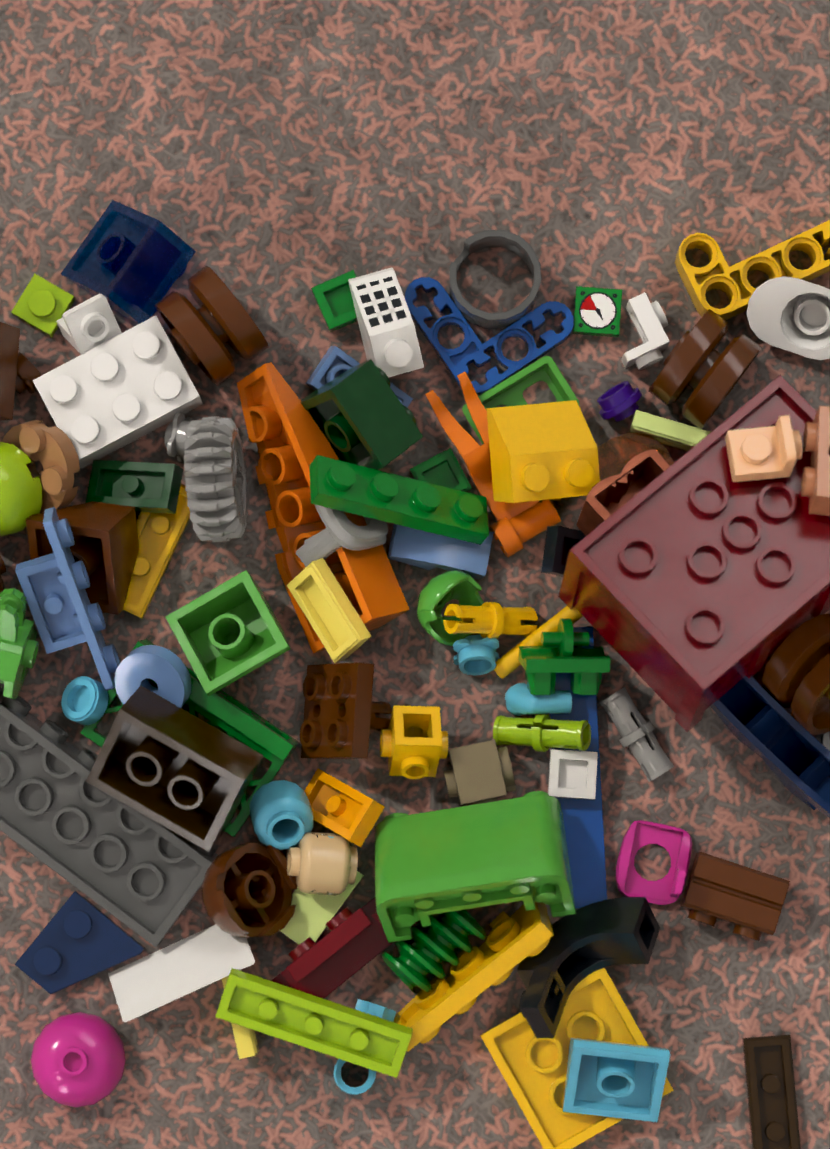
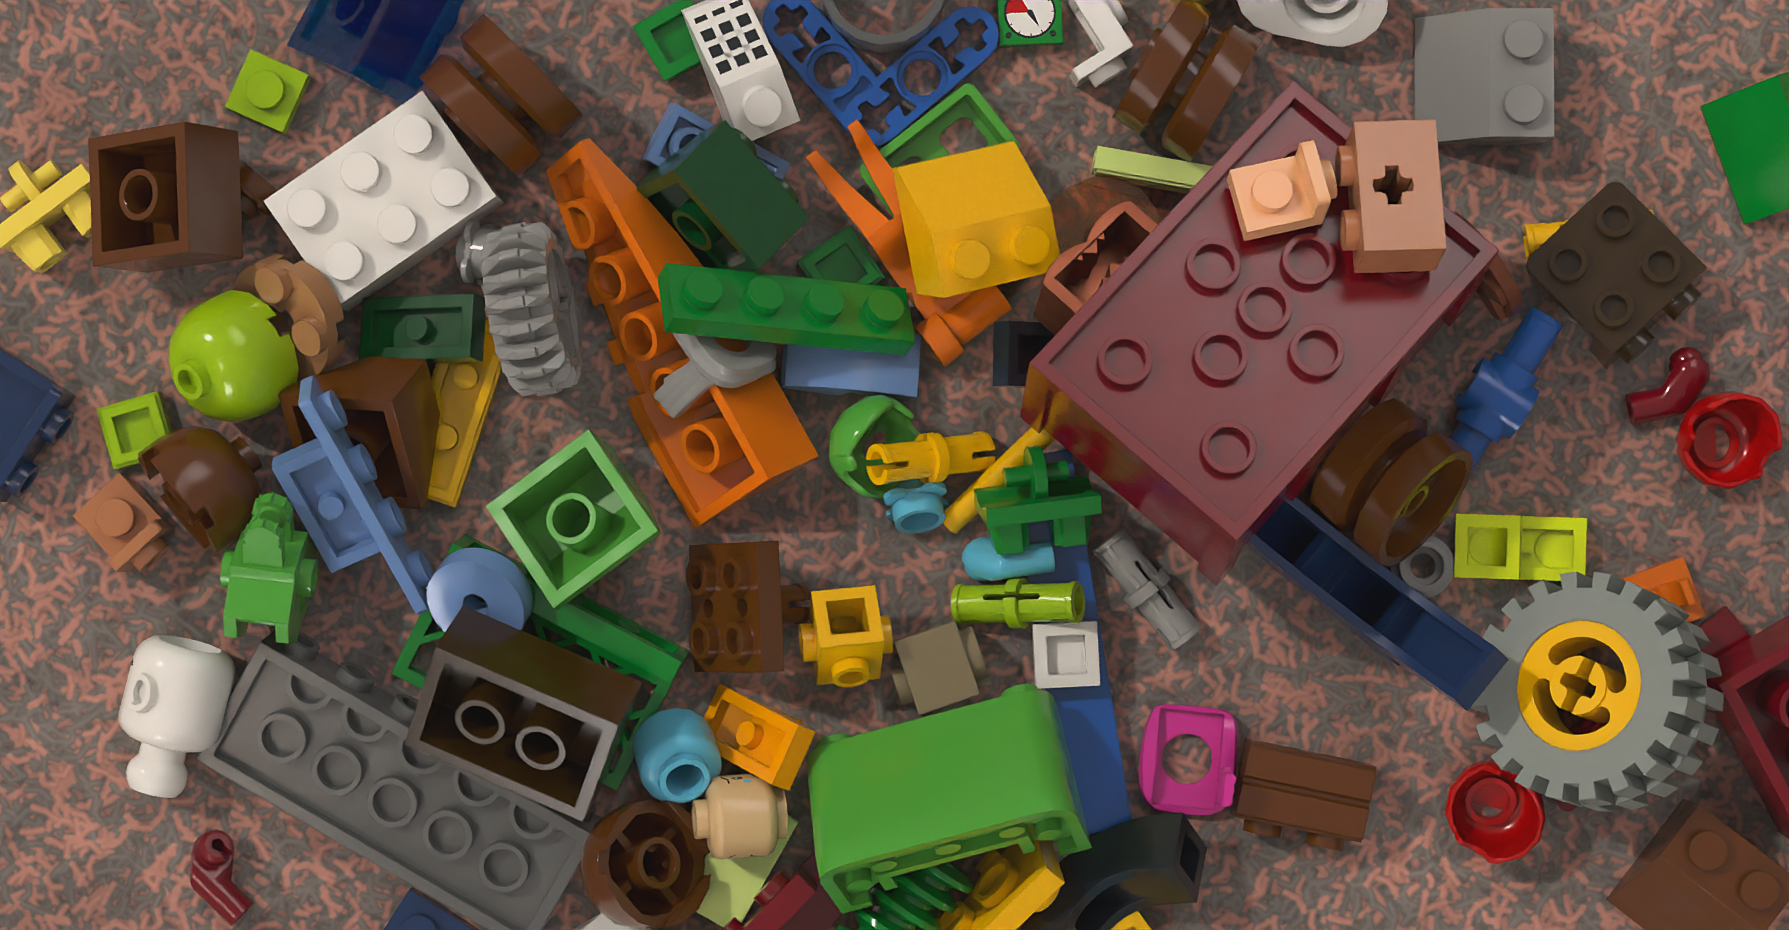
camera: 10 degrees left, 5 degrees up
(84, 700) = (391, 629): medium azure tile -> none
(89, 324) = (333, 113): white bracket -> none
(328, 610) = (708, 471): light yellow tile -> none
(619, 401) = (1073, 135): dark purple plate -> none

